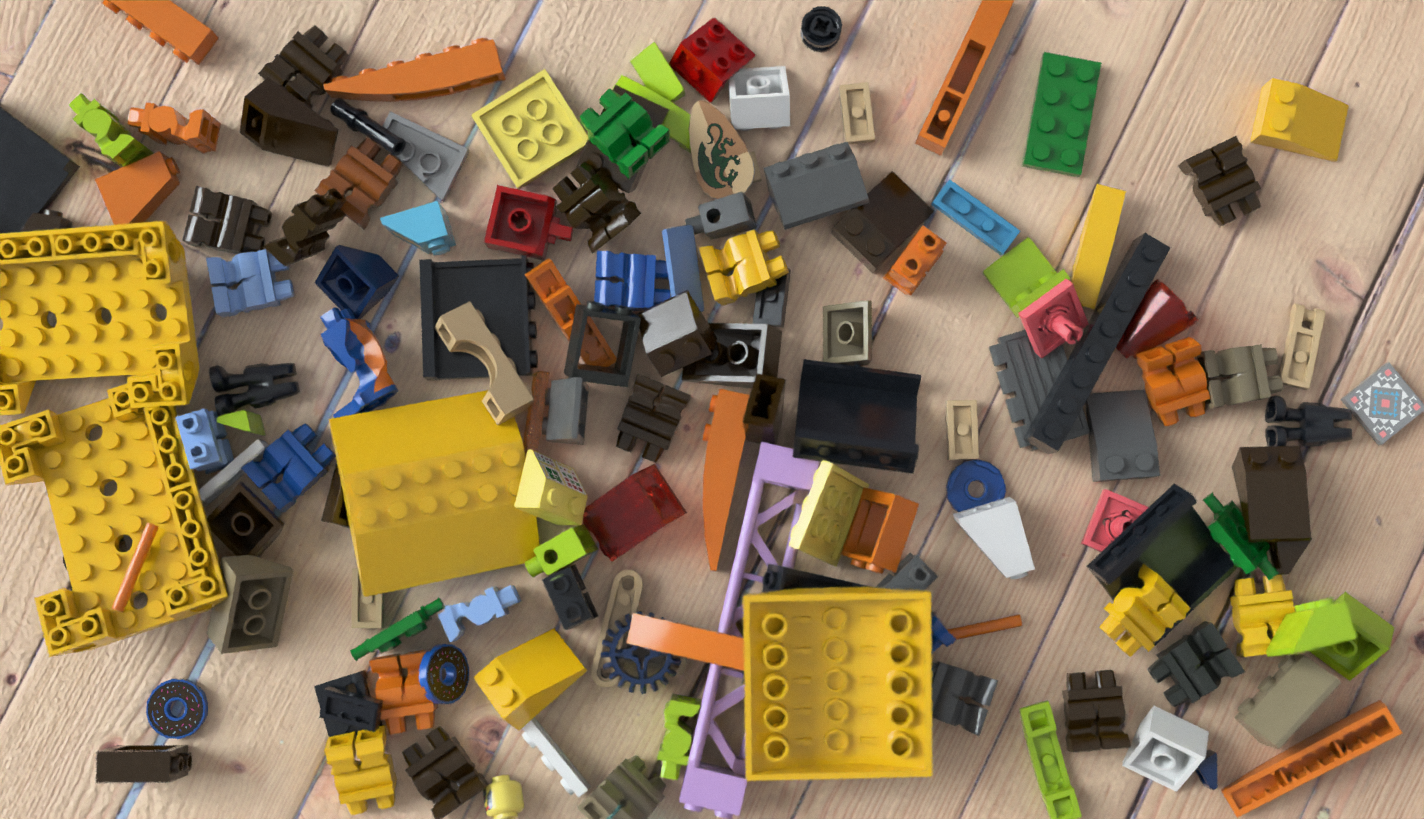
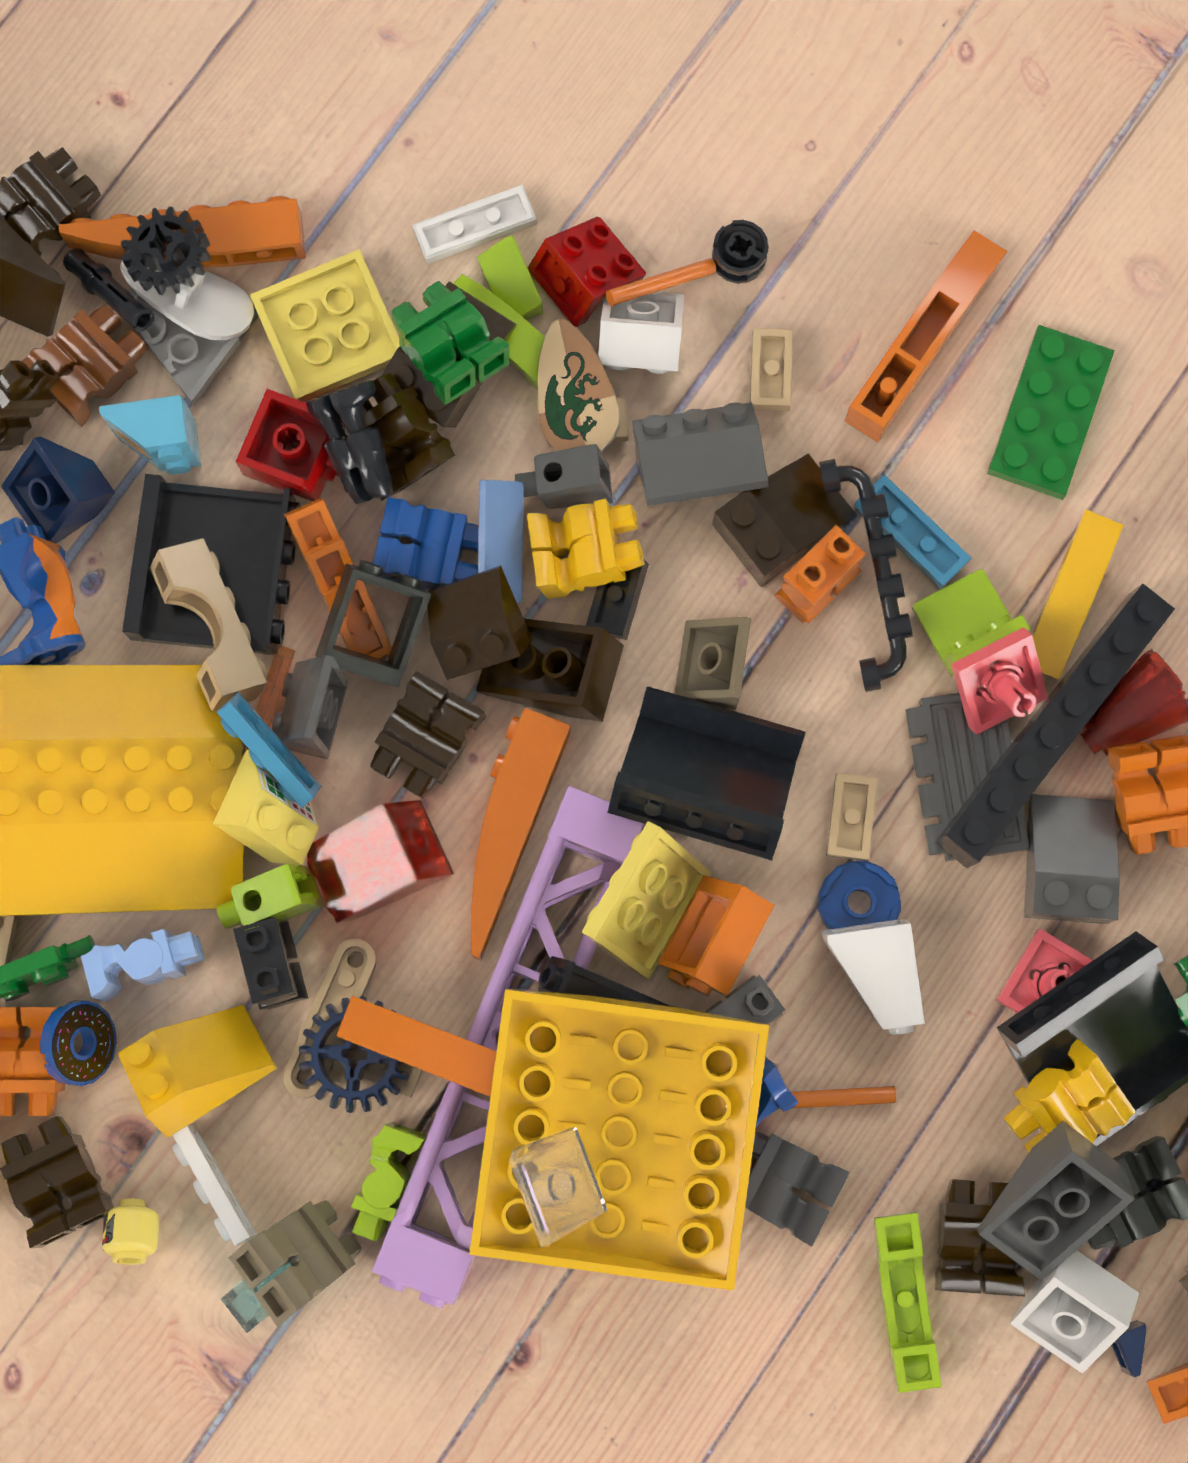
camera: 10 degrees right, 5 degrees down
(417, 91) = (147, 250): none -> black gear
(428, 123) = (208, 309): none -> white shield
(544, 448) = (268, 750): none -> dark azure plate
(570, 223) = (360, 453): none -> black piece
(625, 36) = (474, 224): none -> white tile
(764, 410) = (580, 744): dark brown slope -> none
(767, 61) = (660, 282): none -> orange bar
(800, 724) = (557, 1184): none -> clear slope
(965, 260) = (889, 585): none -> black bar
(1144, 679) = (1056, 1201): none -> dark grey slope

